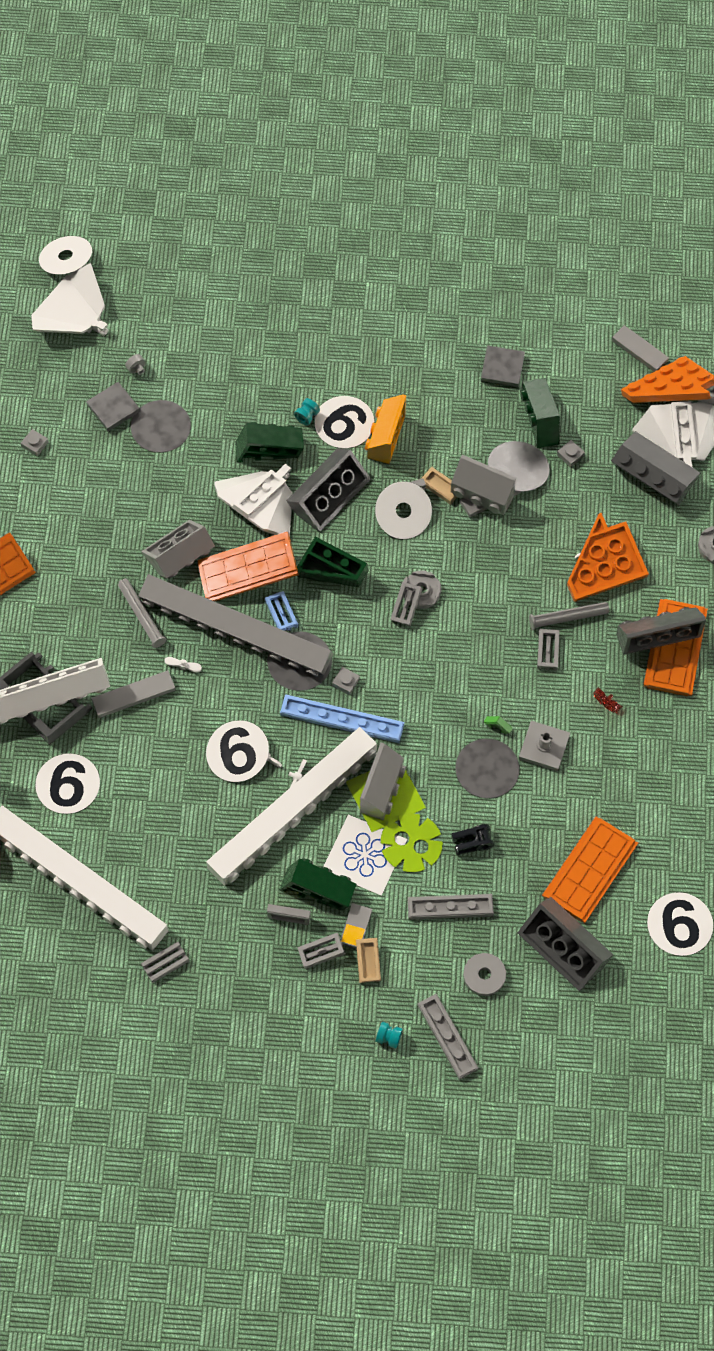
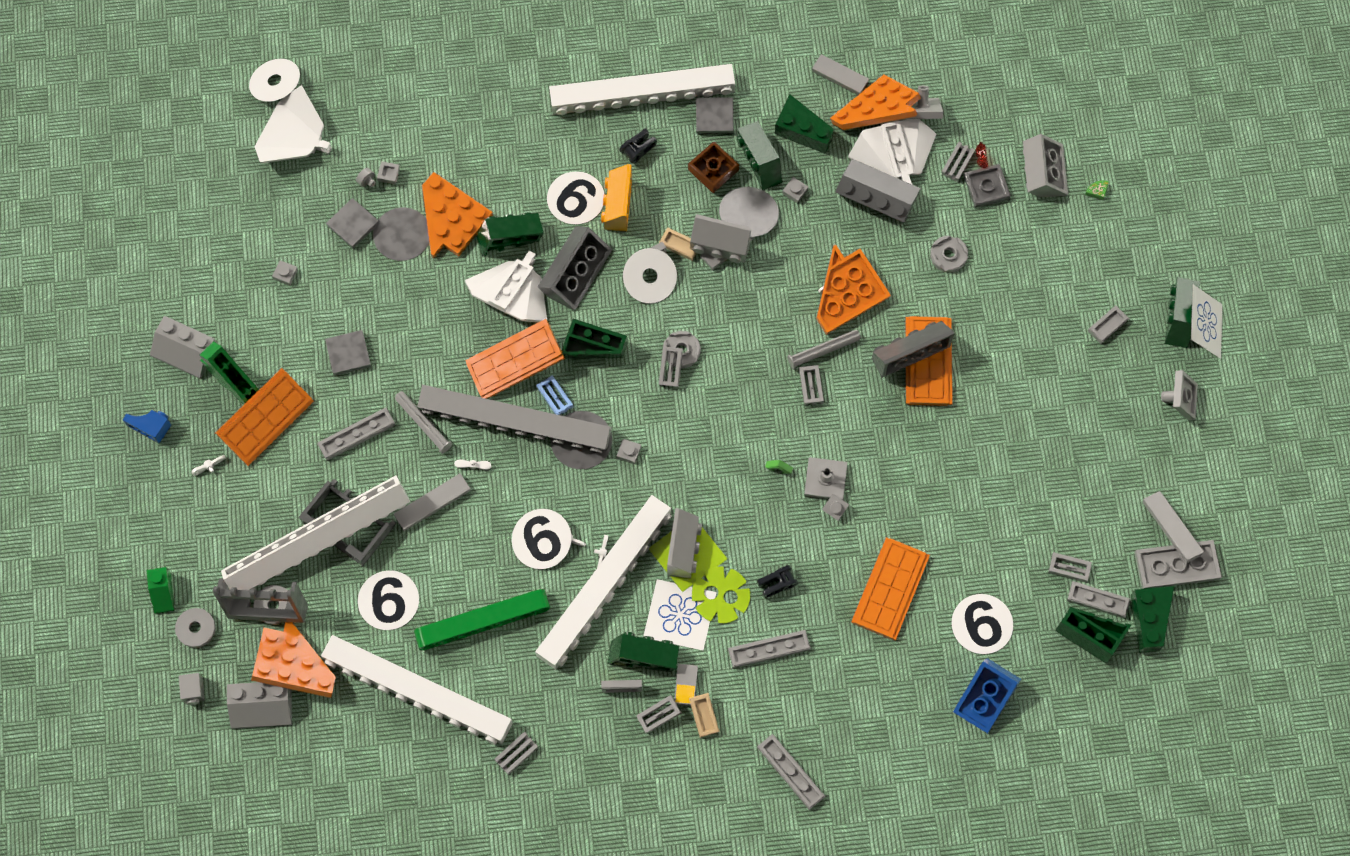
camera: 10 degrees left, 5 degrees up
(71, 612) = (356, 434): none -> light grey tile
(80, 531) = (348, 352): none -> flat silver tile
(158, 820) = (482, 619): none -> green beam
(159, 363) = (388, 172): none -> light grey plate
(178, 549) = (445, 352): light grey slope -> none
(213, 417) = (451, 216): none -> orange wing
(307, 411) = (539, 194): teal wheel -> none
(341, 718) = (632, 488): light blue tile -> none
(387, 1034) = (735, 781): teal wheel -> none
(418, 382) = (634, 150): none -> black piece
(434, 327) = (642, 89): none -> white brick
(484, 962) = (816, 695): light grey tile -> none
(487, 768) = (777, 510): flat silver sticker -> none
(493, 405) = (713, 156): none -> reddish brown brick
(548, 775) = (835, 507): none -> light grey plate
(565, 943) = (881, 663): dark grey slope -> none
(591, 392) = (803, 126): none -> dark green wedge
(609, 704) = (877, 427): clear red piece -> none
(670, 997) = (987, 695): none -> blue slope

